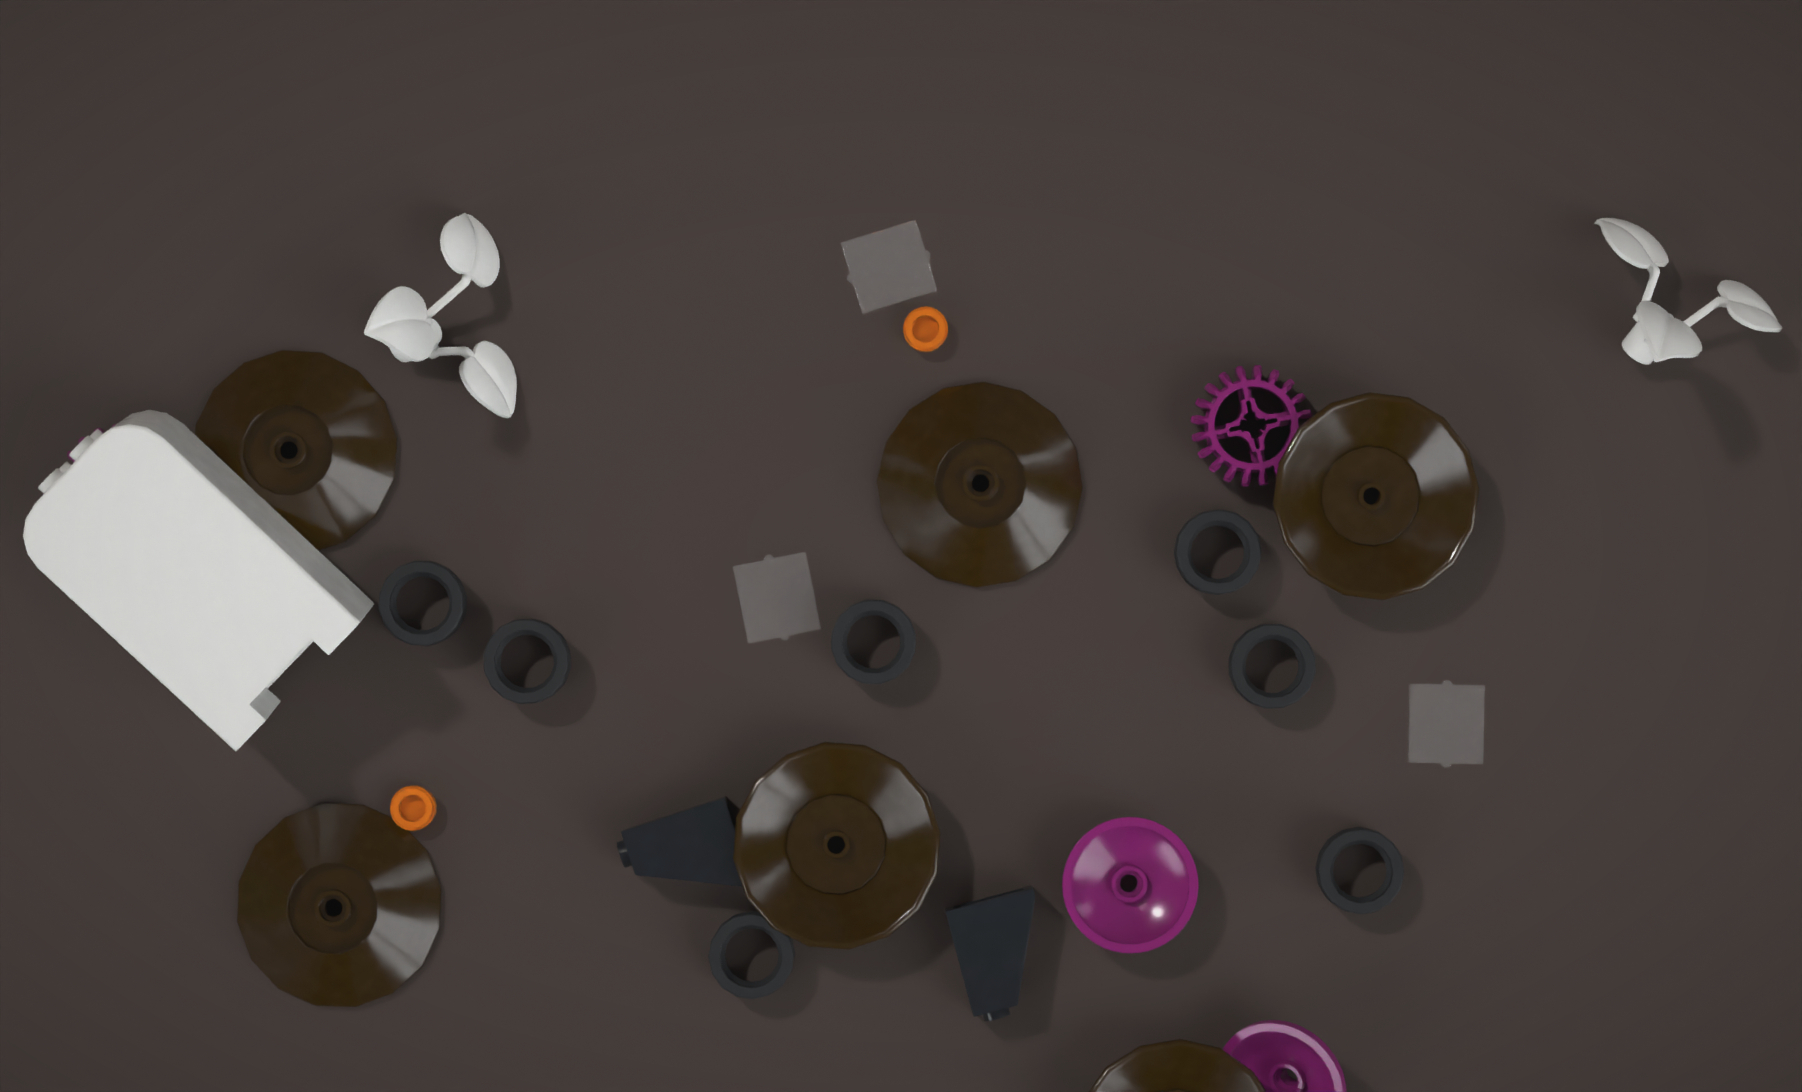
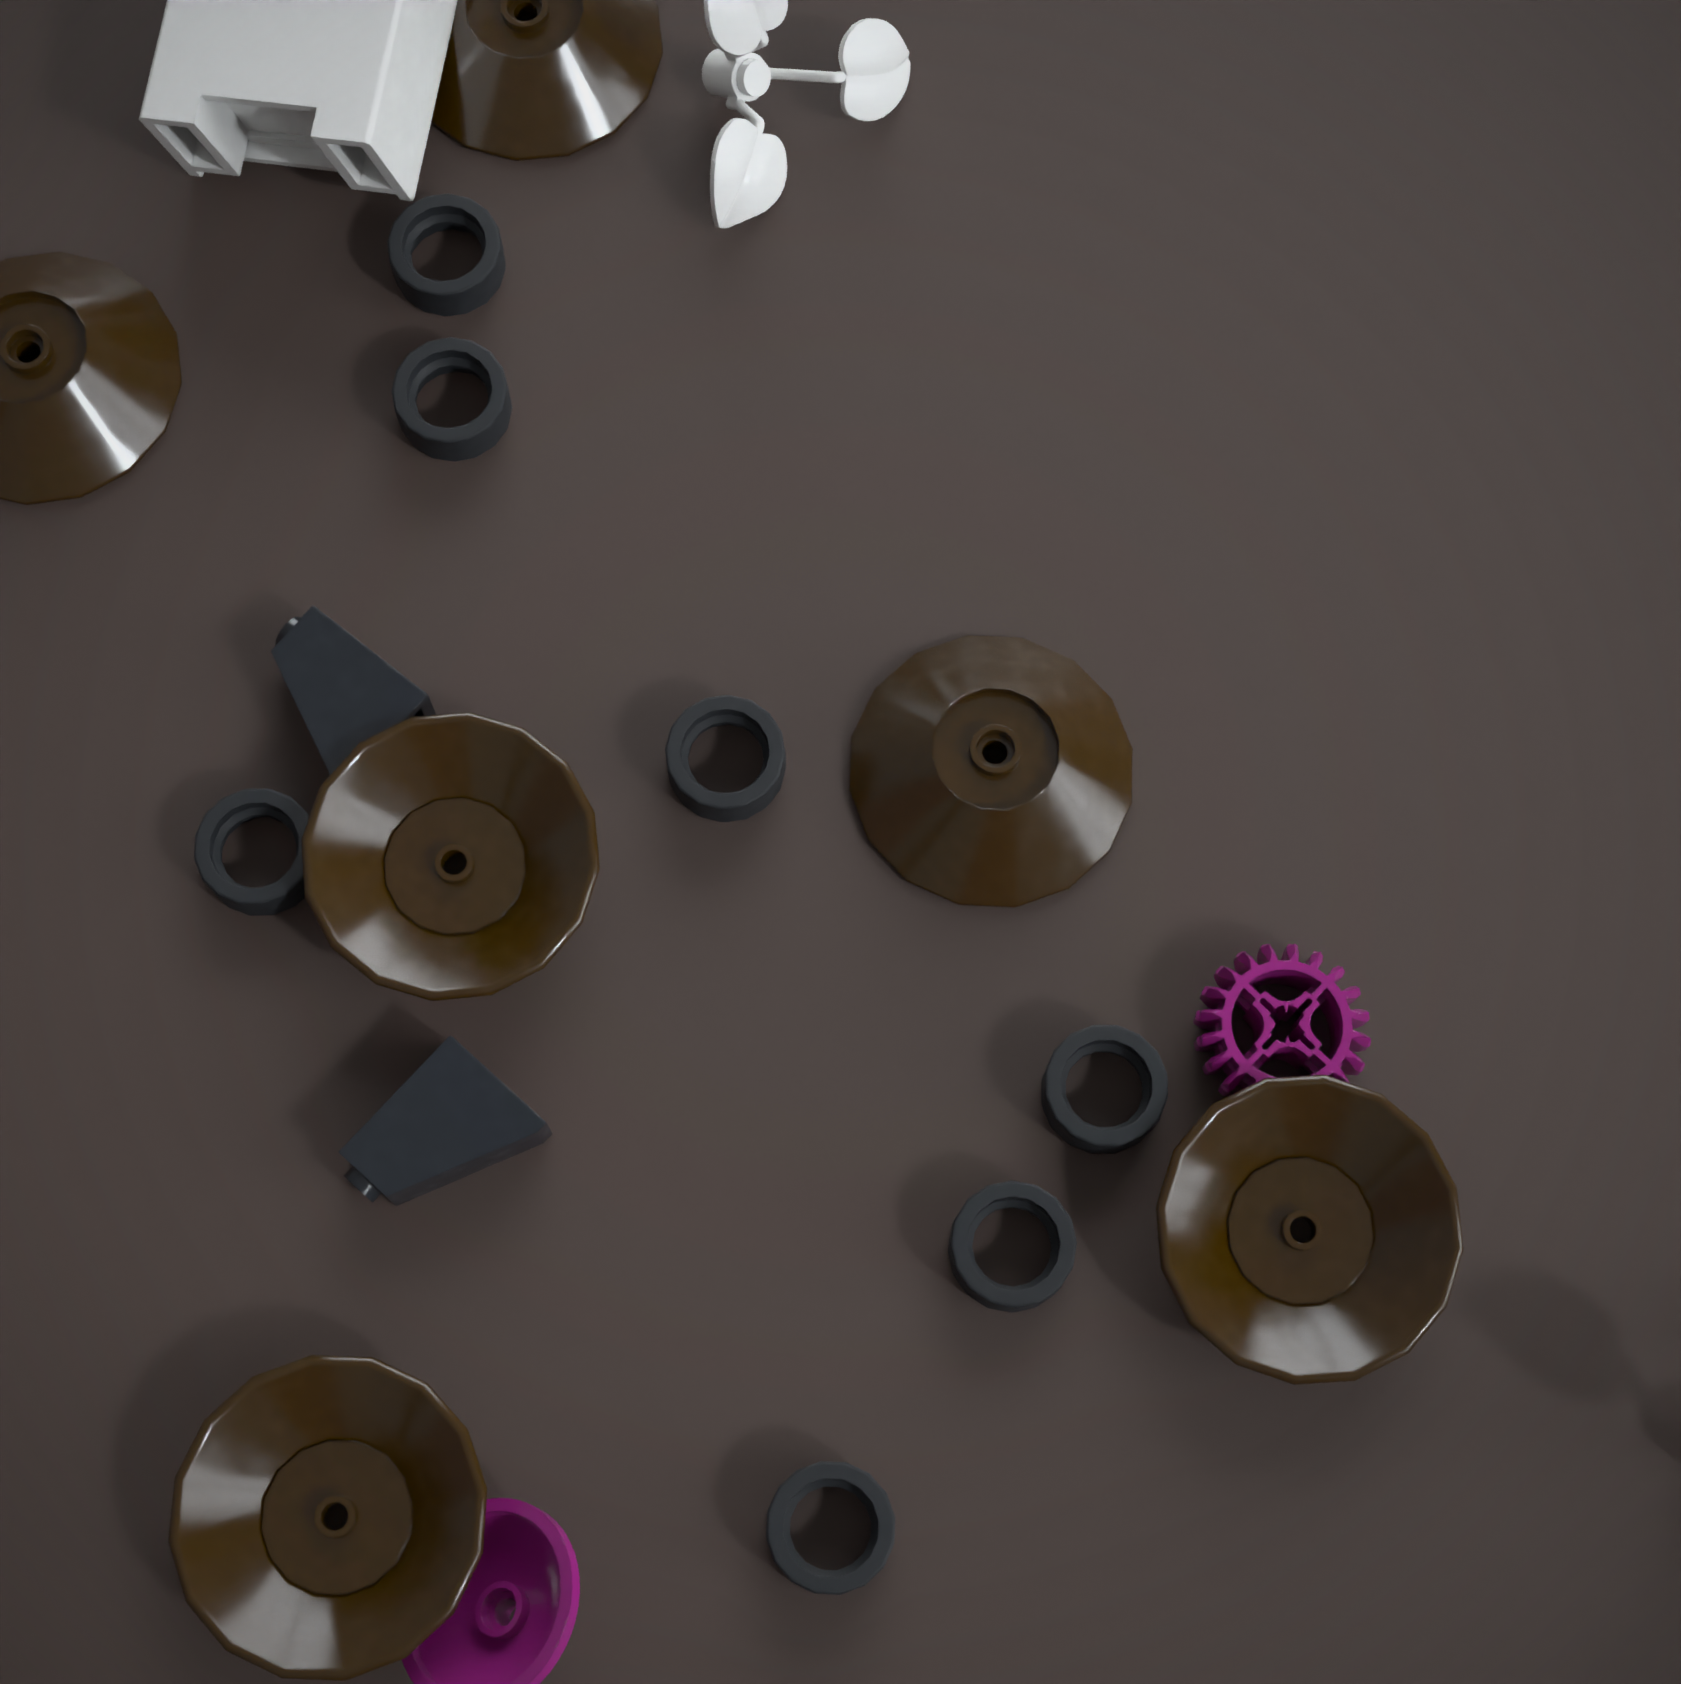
camera: 55 degrees right, 15 degrees down
(413, 807) = (205, 386): orange tile -> none
(776, 597) = (705, 627): clear piece -> none
(888, 266) = (1166, 517): clear piece -> none
(925, 329) = (1125, 597): orange tile -> none
(1135, 918) = (615, 1194): magenta dish -> none
(1446, 723) = (1087, 1520): clear piece -> none

